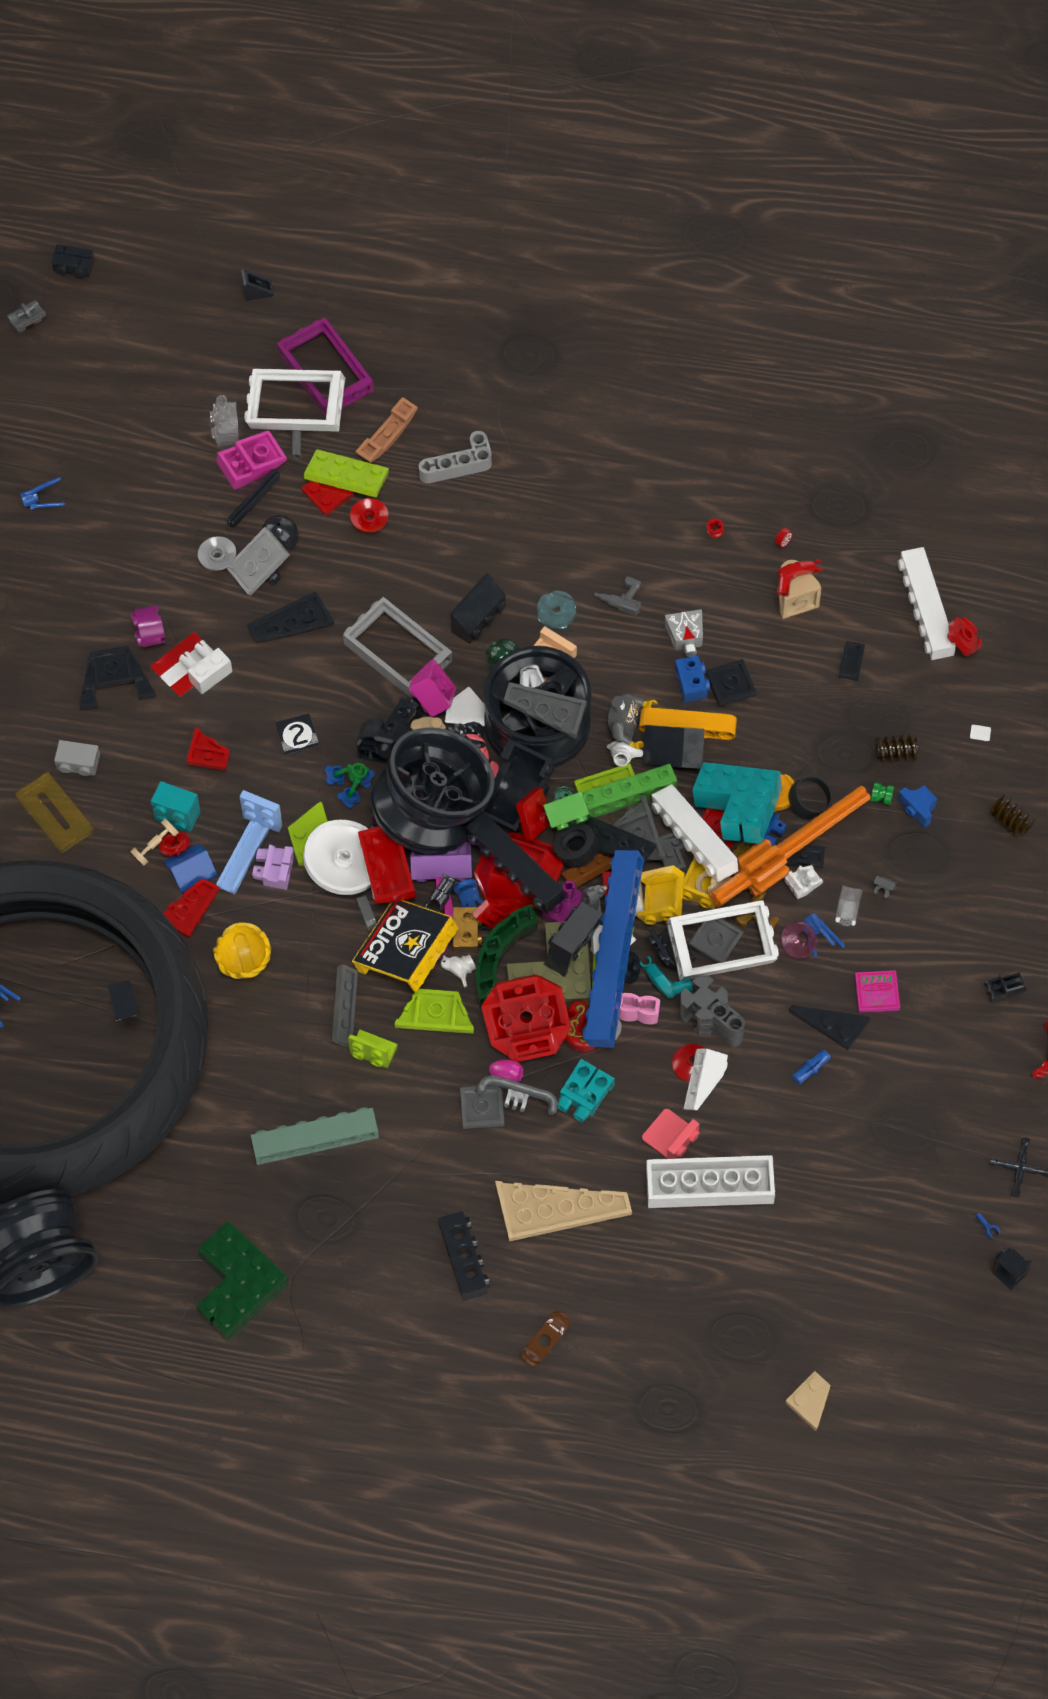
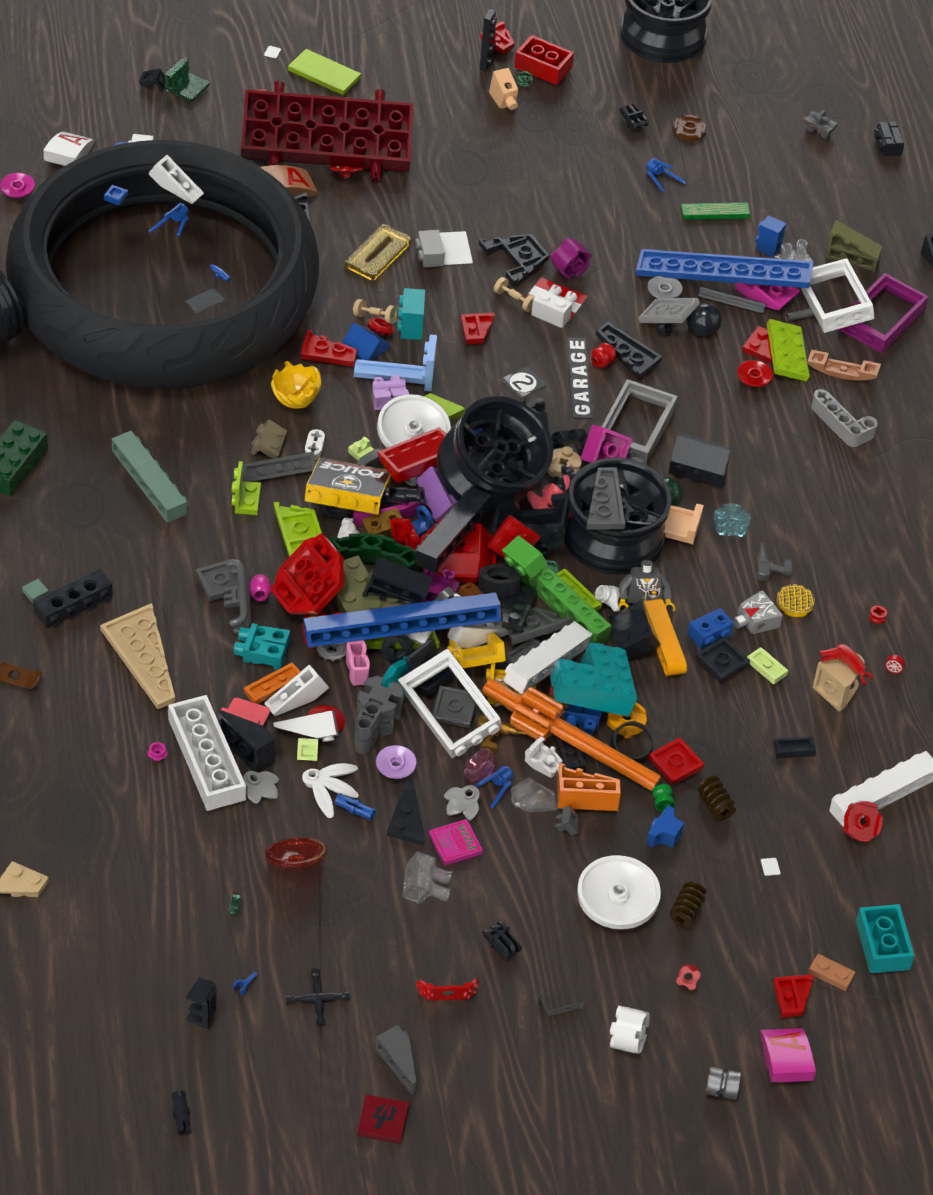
camera: 65 degrees right, 15 degrees down
(72, 731) = (456, 248): none -> white sticker
(95, 972) = (220, 273): none -> blue helmet
(115, 465) = (715, 211): none -> tile
(156, 708) = (501, 286): none -> tan wheel
(185, 427) = (770, 236): none -> blue brick
(218, 487) = (725, 268): none -> blue plate
(227, 358) = (850, 244): none -> olive wedge
(294, 645) = (603, 355): none -> red piece
(300, 1004) = (269, 439): none -> dark tan bracket
(309, 679) = (579, 378): none -> black sticker
(319, 966) = (318, 445): none -> white beam
(343, 919) = (360, 448): none -> yellowish green tile
(435, 1291) = (35, 590): none -> sand green tile
(635, 1096) = (270, 684): none -> orange plate
(656, 1078) = (299, 691): none -> white slope
(675, 592) = (795, 600): none -> tile
(688, 1223) = (157, 751): none -> dark pink plate
(714, 1137) = (248, 741): none -> black slope
(729, 1088) = (307, 749): none -> yellowish green tile
(751, 646) = (767, 665): none -> yellowish green plate
(760, 1143) = (263, 785): none -> light grey plate
(772, 1005) = (399, 756): none -> lavender dish
(772, 1085) = (320, 779): none -> white plant
(832, 972) = (461, 803): none -> light grey plate
(841, 767) = (676, 761): none -> red plate
(852, 1129) = (296, 853): none -> clear red dish
(857, 857) = (587, 790): none -> orange wedge
(895, 1208) = (234, 905): none -> clear green tile
(918, 1034) = (420, 876): none -> clear brick
(983, 868) = (618, 892): none -> white dish

